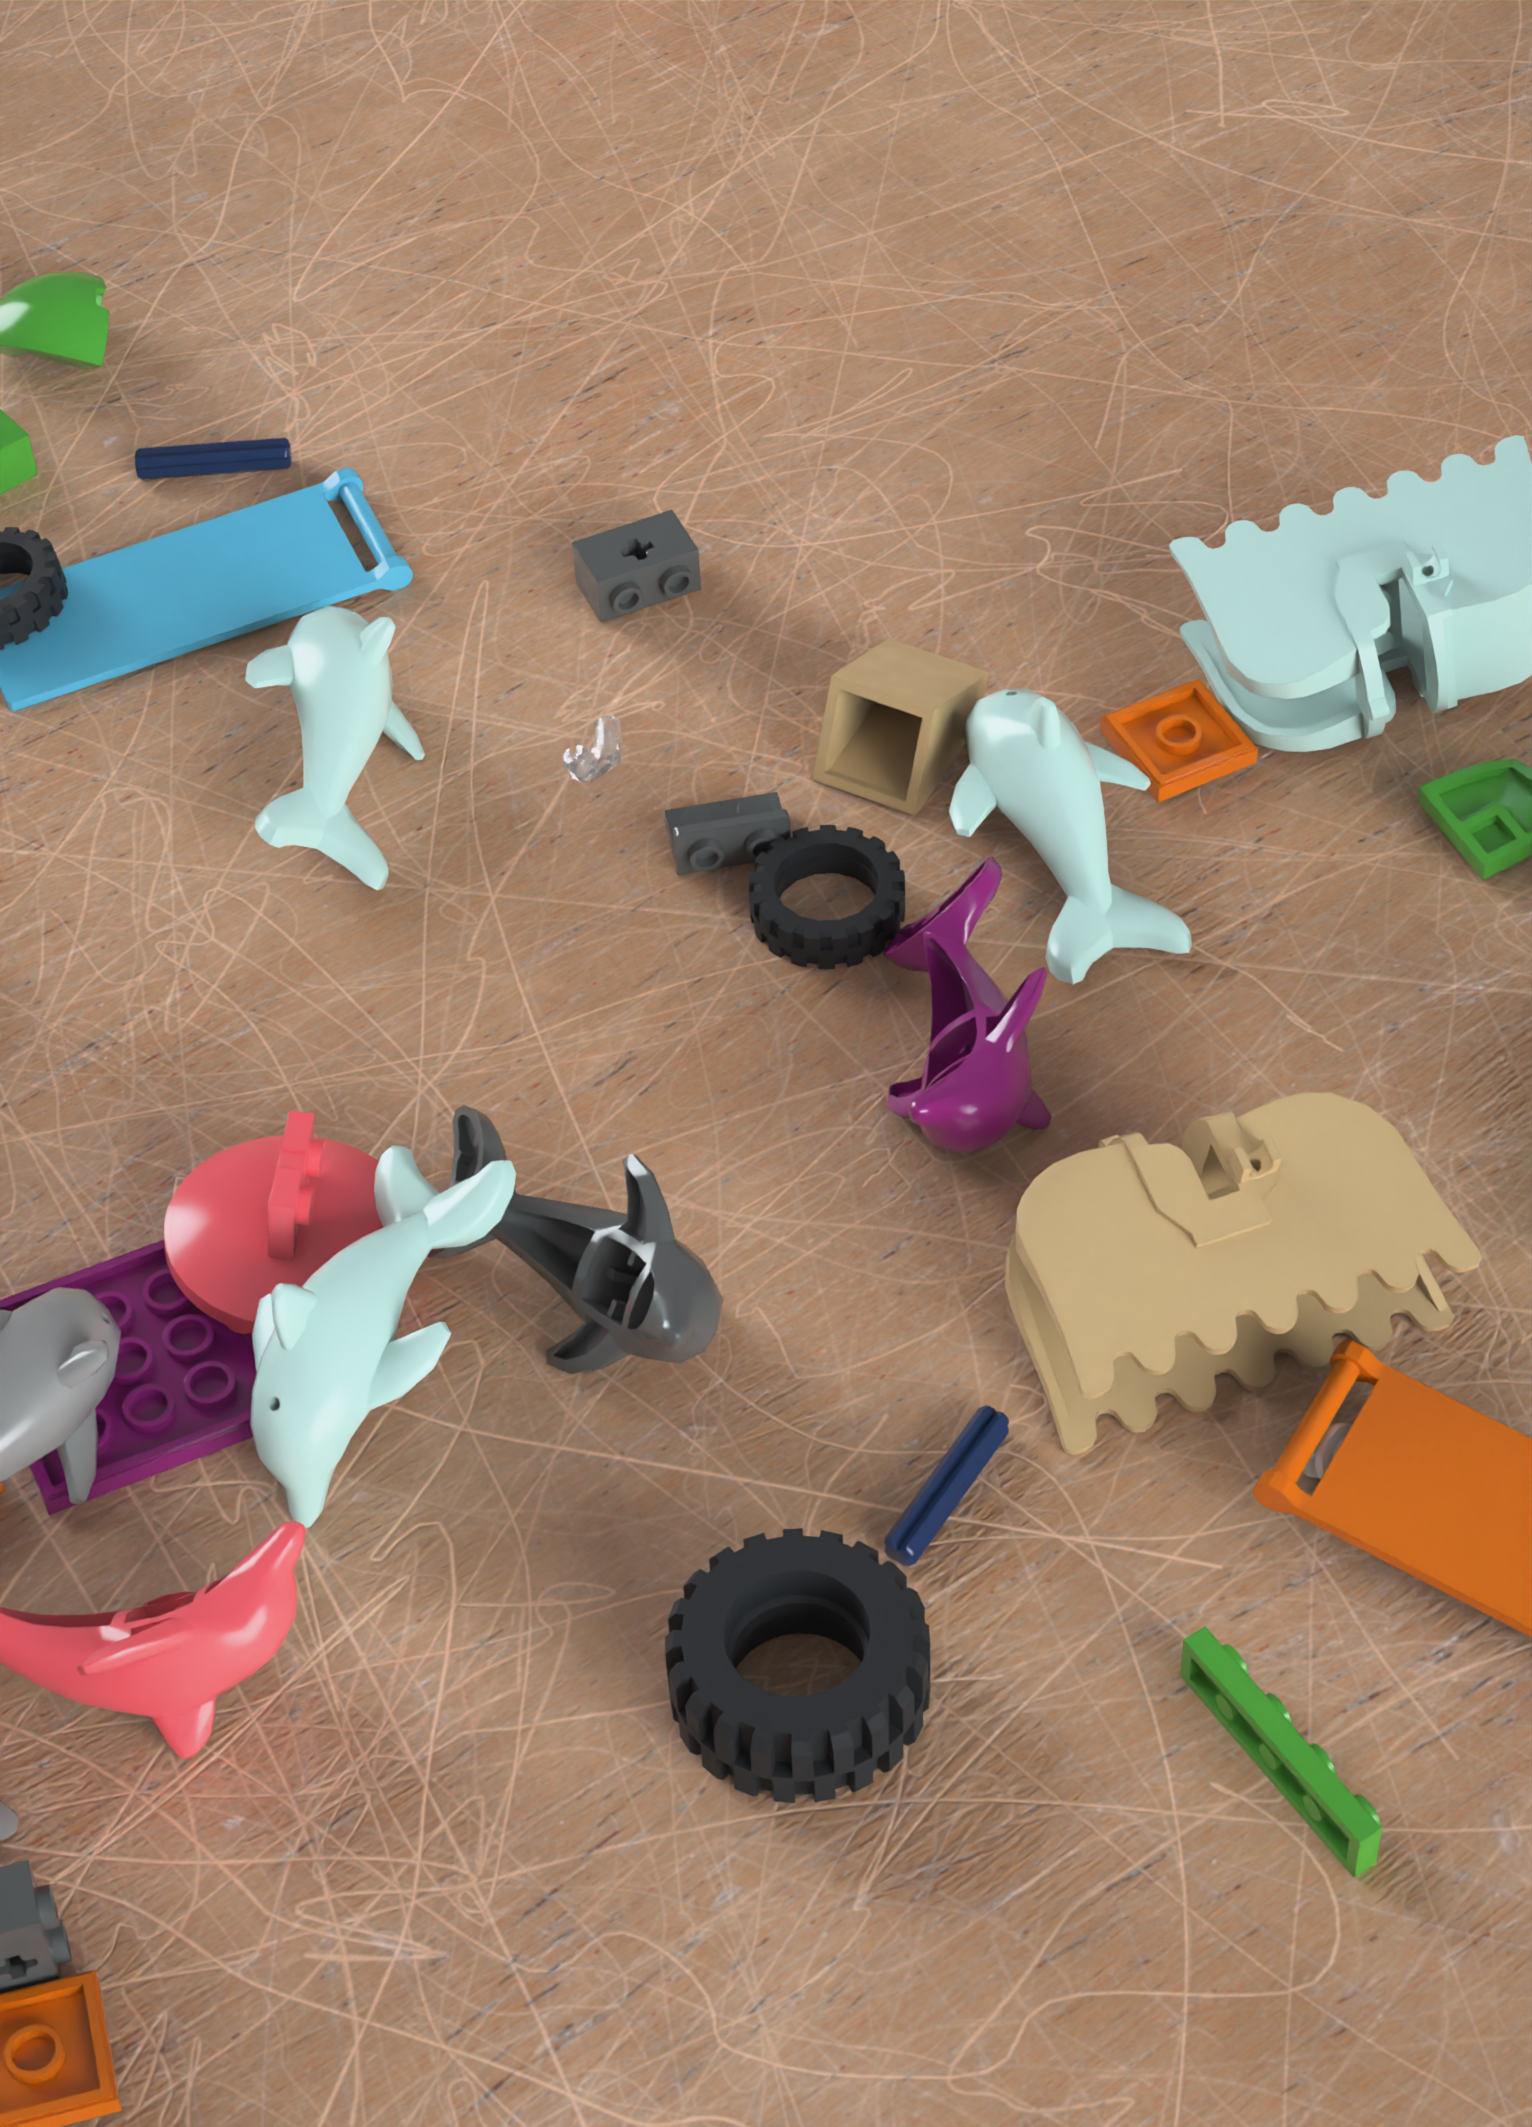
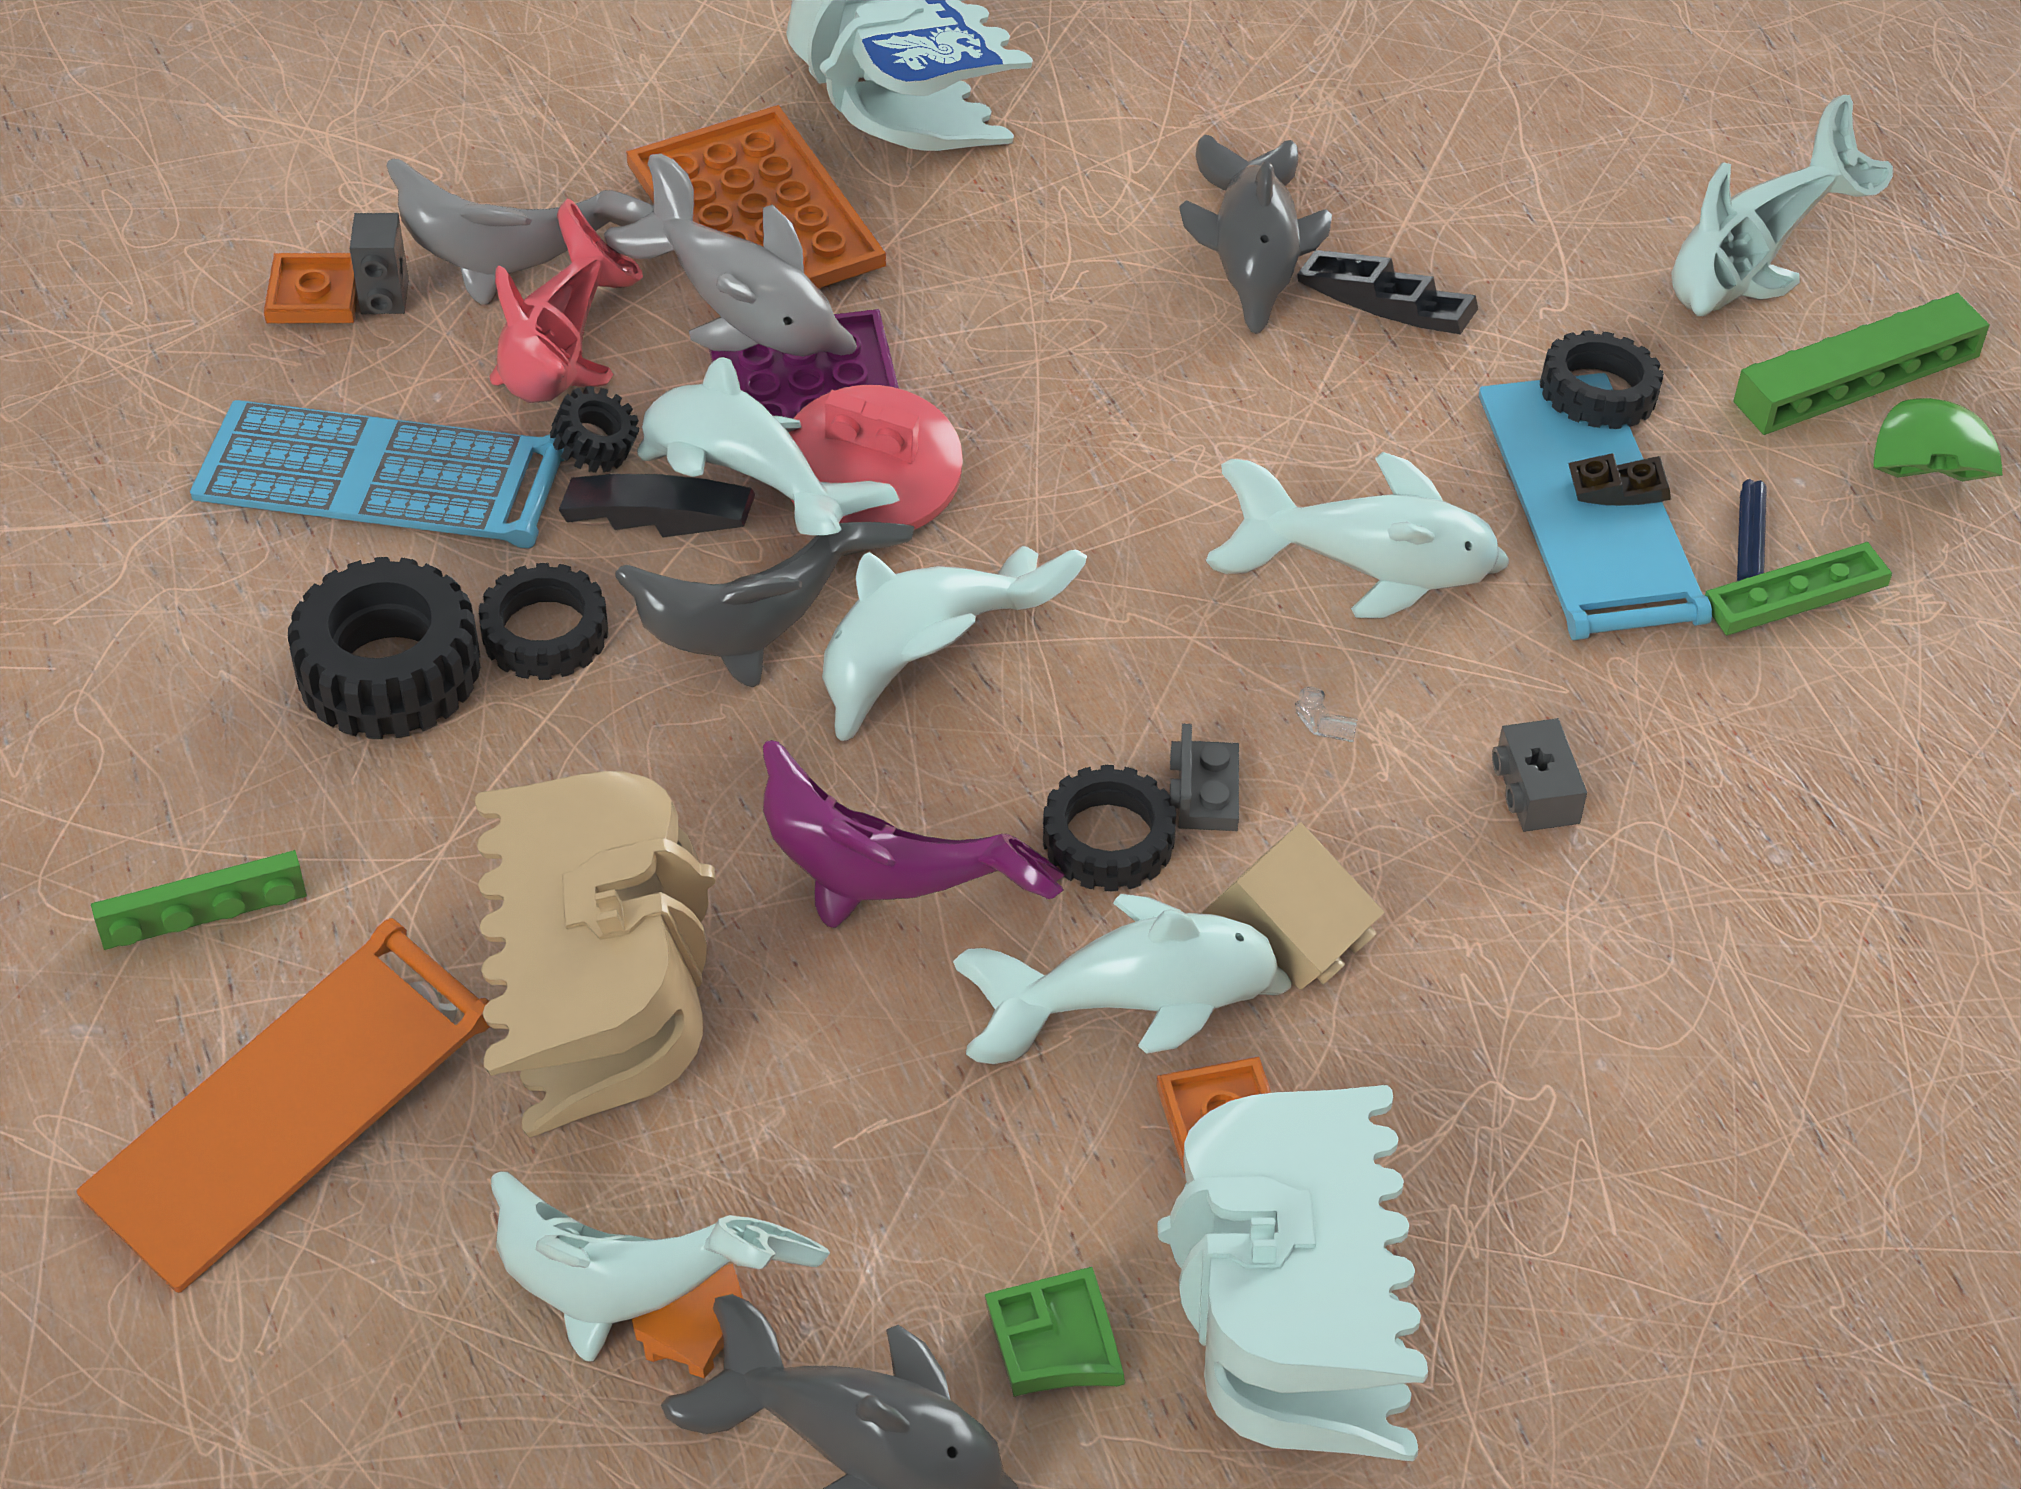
camera: 100 degrees right, 0 degrees up
(164, 553) = (1606, 483): none -> dark brown slope
(296, 412) = (1798, 588): none -> bright green plate
(330, 1556) = (603, 413): none -> black tyre
(417, 1851) = (376, 471): none -> medium azure flag
(423, 1476) = (669, 502): none -> black slope
(591, 1088) = (918, 615): none -> light aqua animal
(647, 1474) = (550, 656): none -> black tyre
(946, 1486) = (492, 761): dark blue axle -> none

